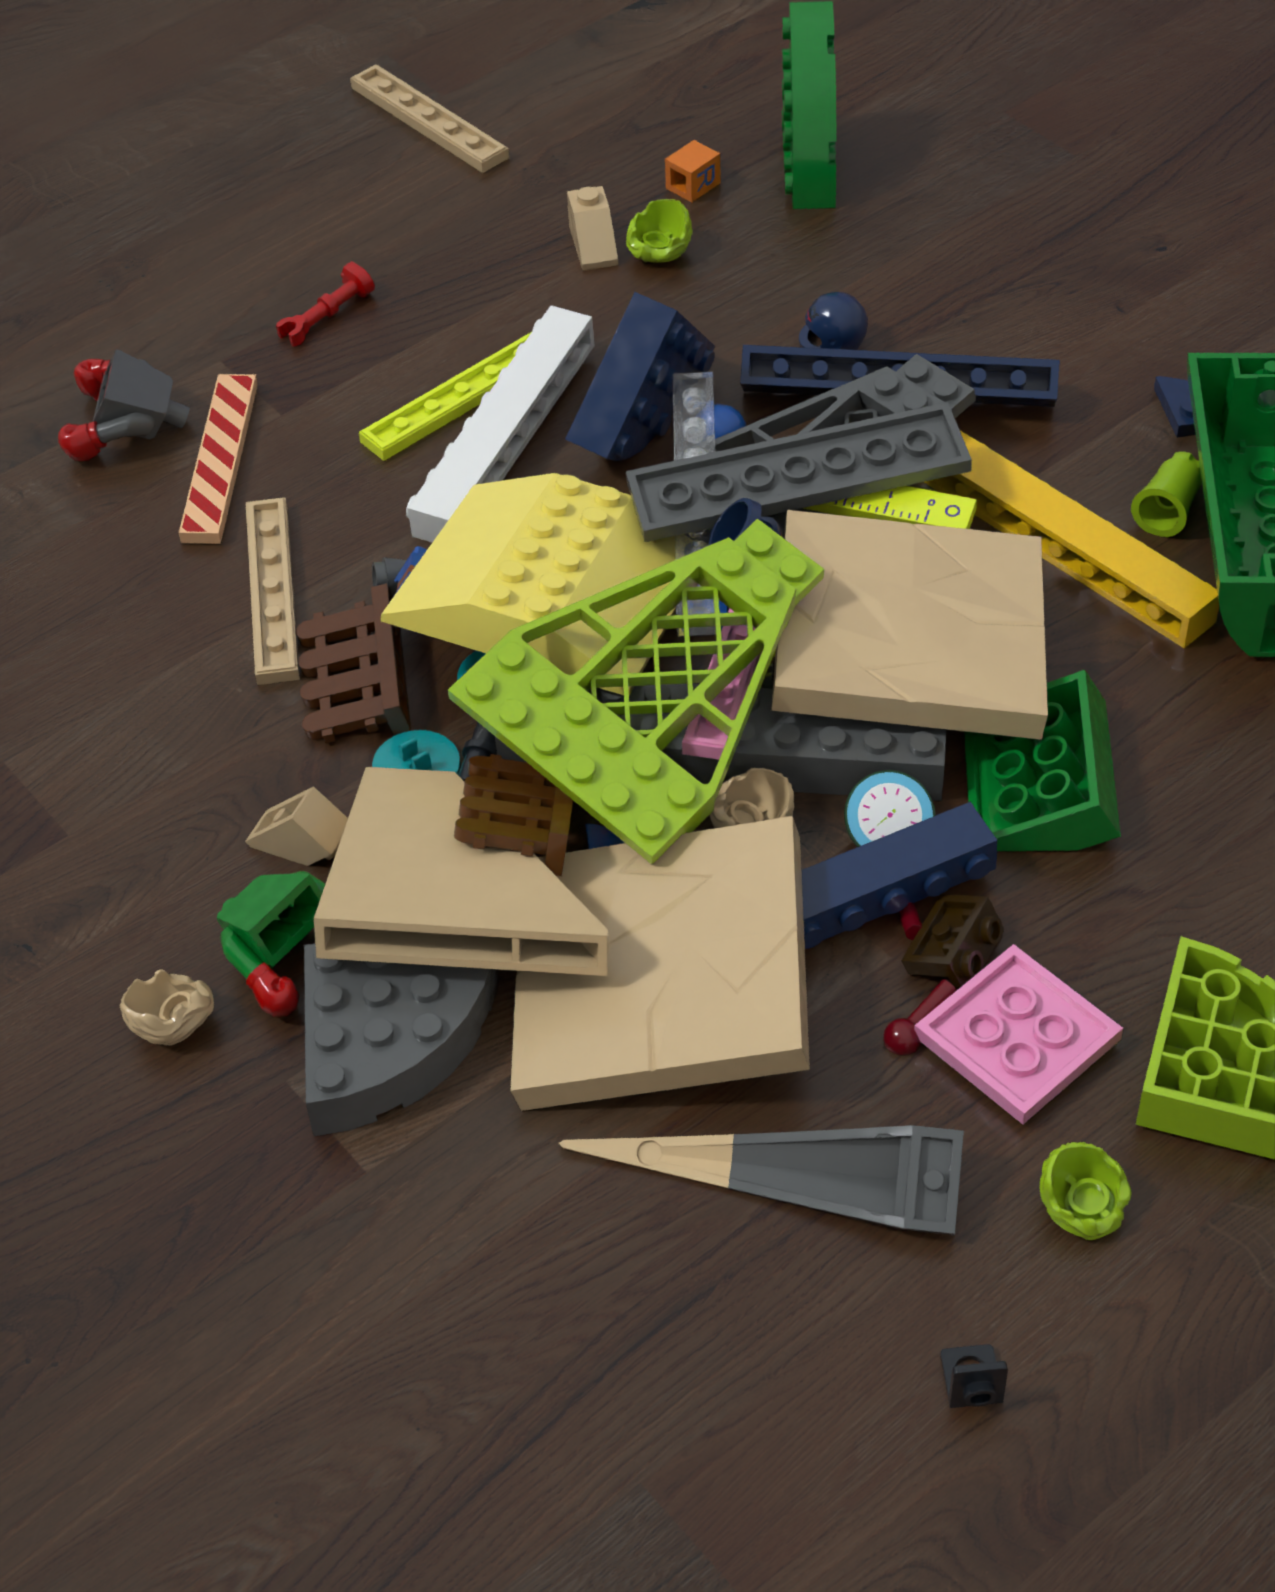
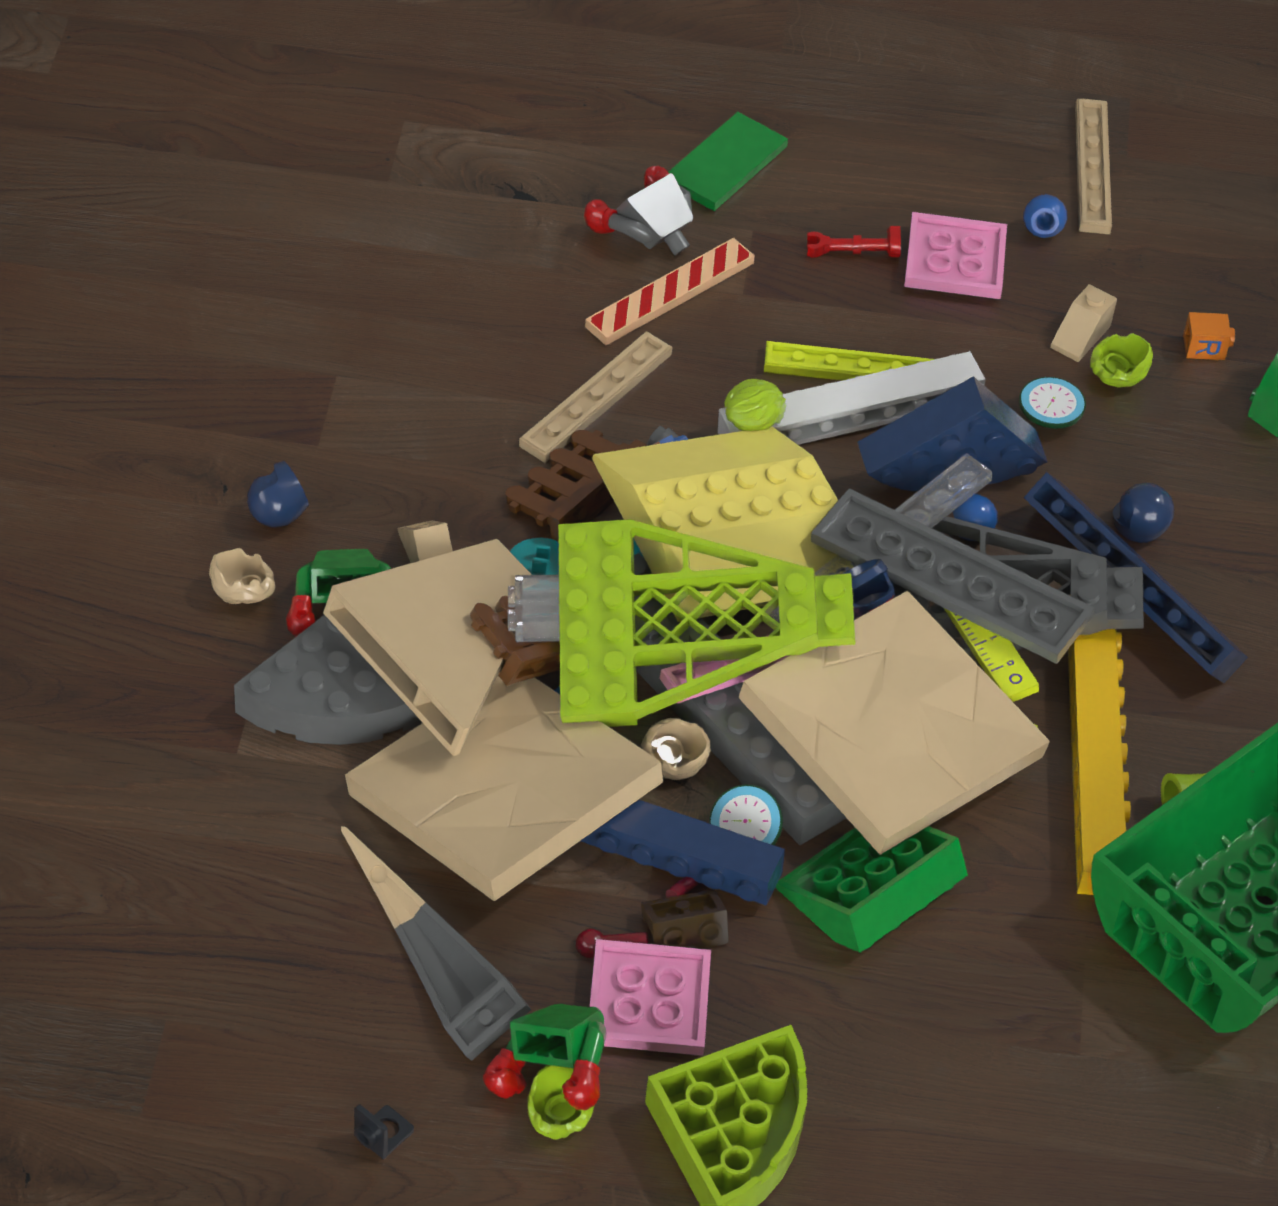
camera: 40 degrees right, 0 degrees up
(108, 903) = (277, 497): none -> dark blue helmet
(126, 316) = (727, 160): none -> green tile
(420, 254) = (956, 255): none -> bright pink plate
(443, 475) = (755, 405): none -> lime hair
(452, 174) = (1045, 216): none -> blue piece
(514, 780) = (535, 608): none -> clear brick
(656, 288) = (1052, 402): none -> piece
(1031, 1130) = (556, 1037): none -> green torso

